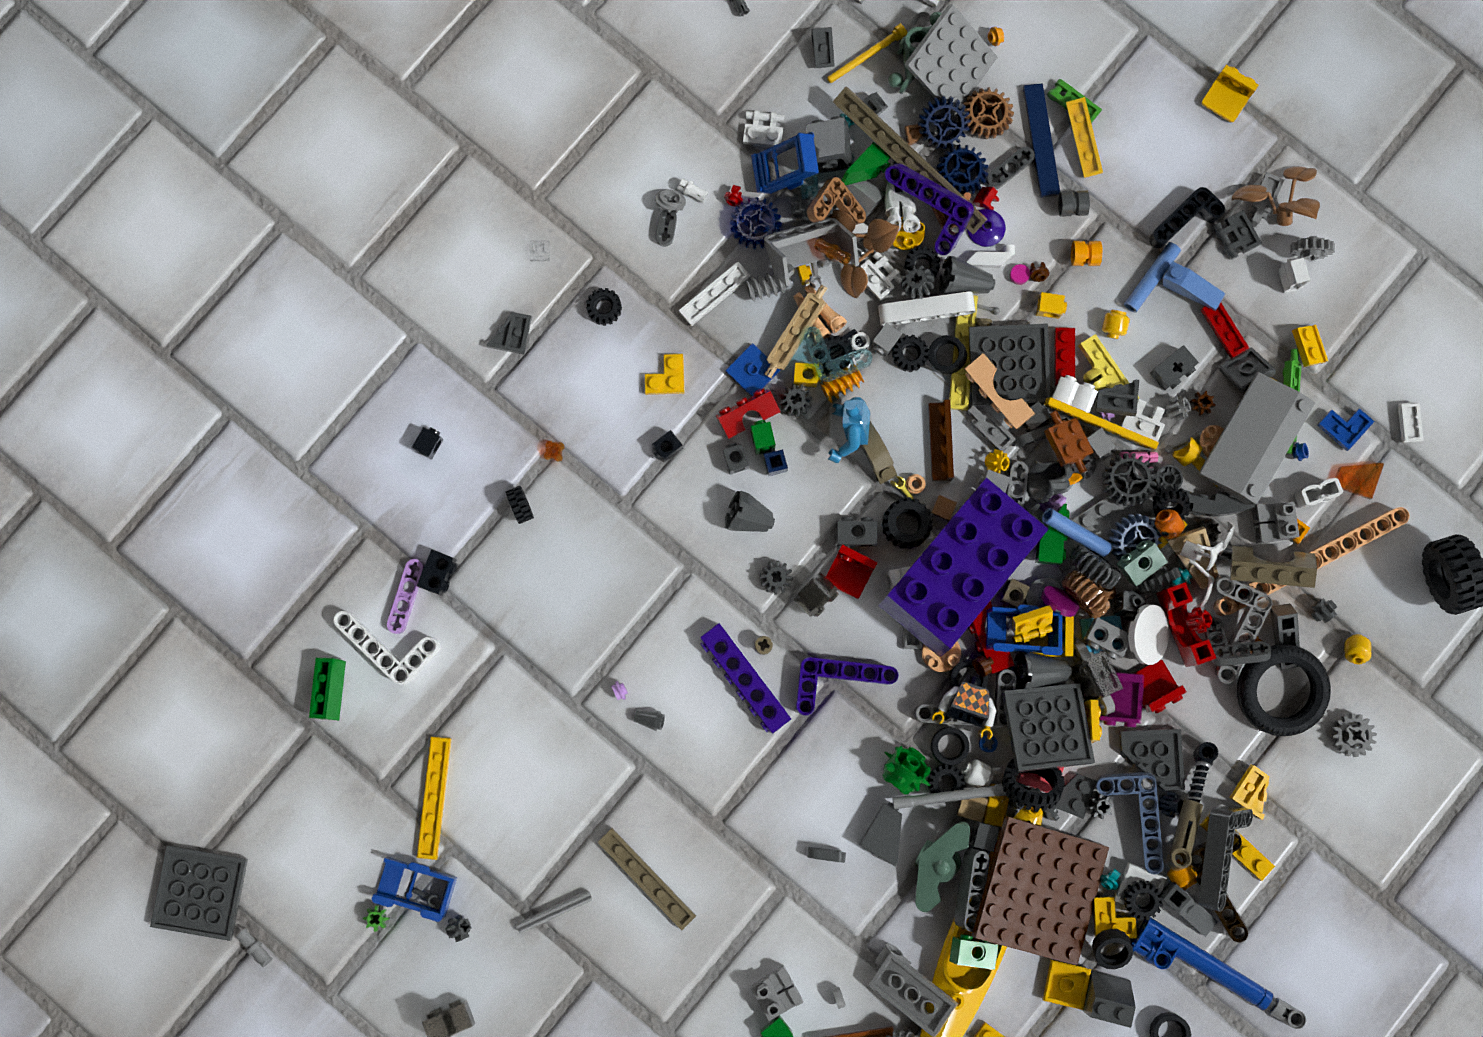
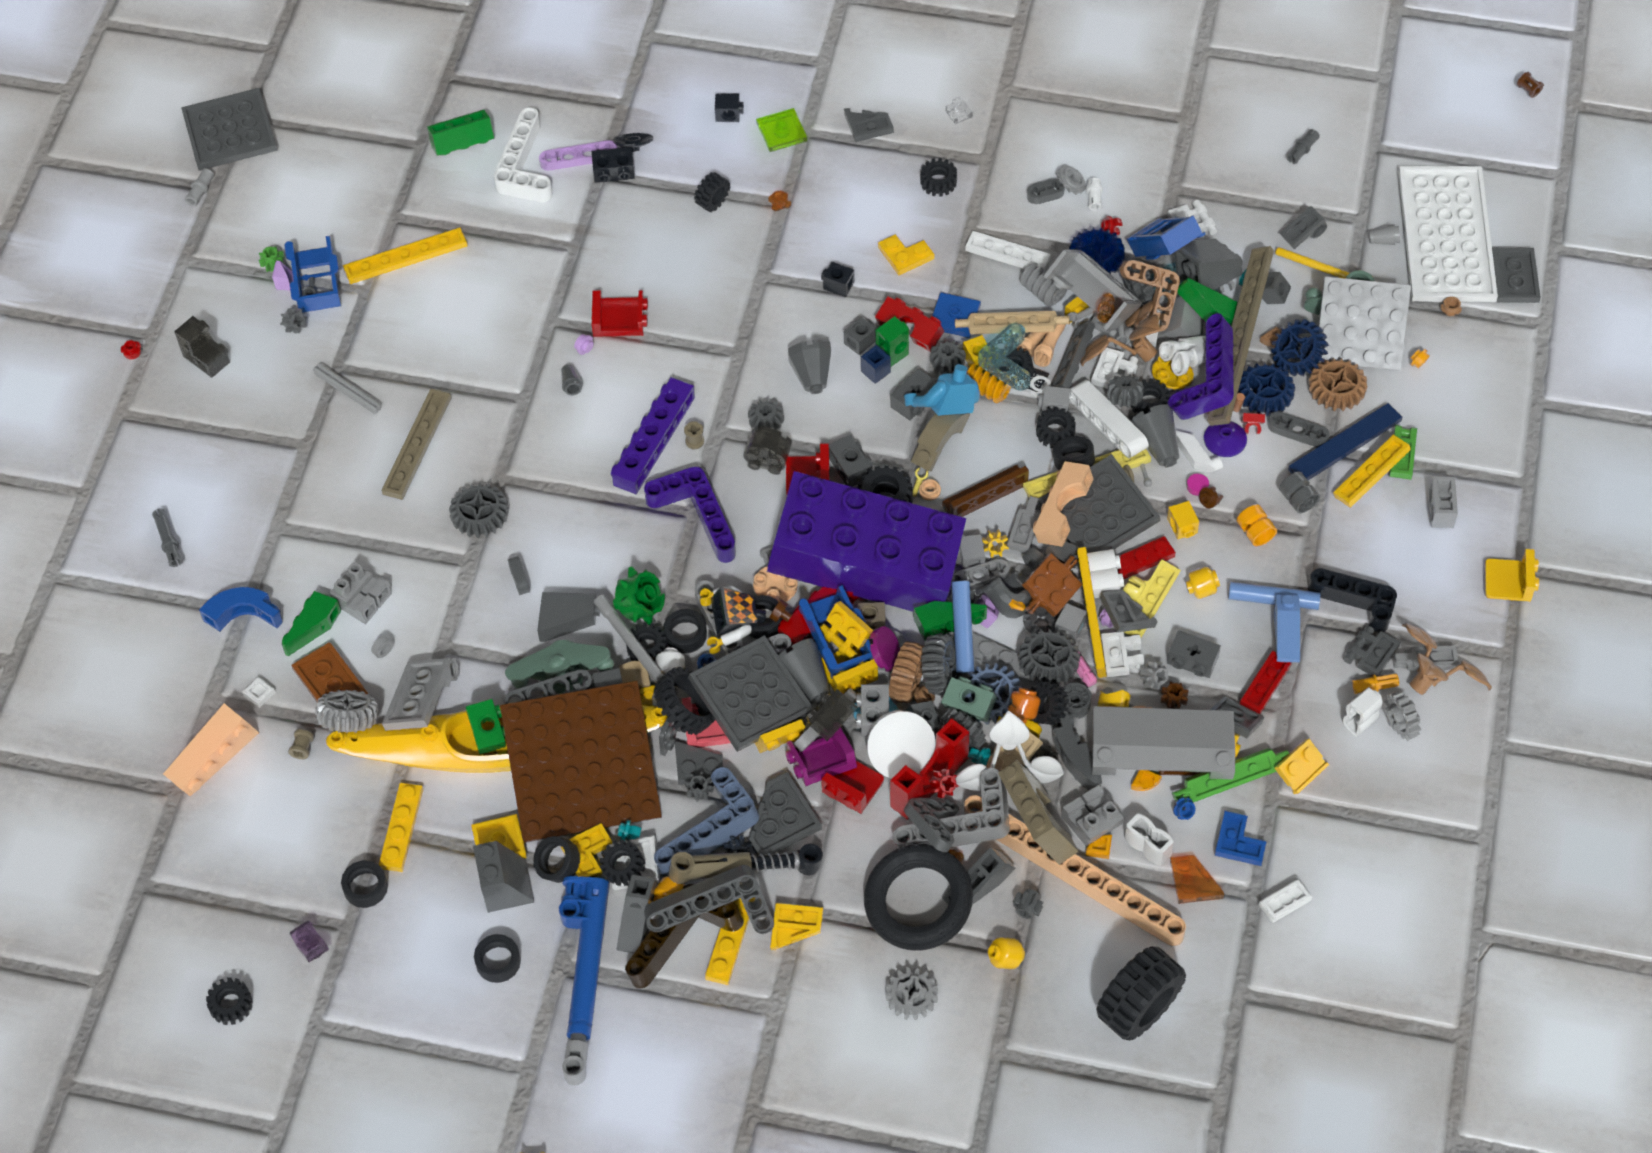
camera: 65 degrees right, 25 degrees down
(401, 916) = (282, 276): none -> lavender slope
(419, 542) = (633, 140): none -> black dish
(475, 409) = (781, 130): none -> clear neon green plate
(602, 645) = (618, 315): none -> red panel
(752, 842) = (478, 510): none -> dark grey gear
(811, 438) = (917, 383): none -> dark grey brick
(851, 302) = (1074, 353): none -> dark grey plate
(1141, 102) = (1443, 502): none -> light grey brick
(1266, 250) = (1375, 683): none -> light orange axle

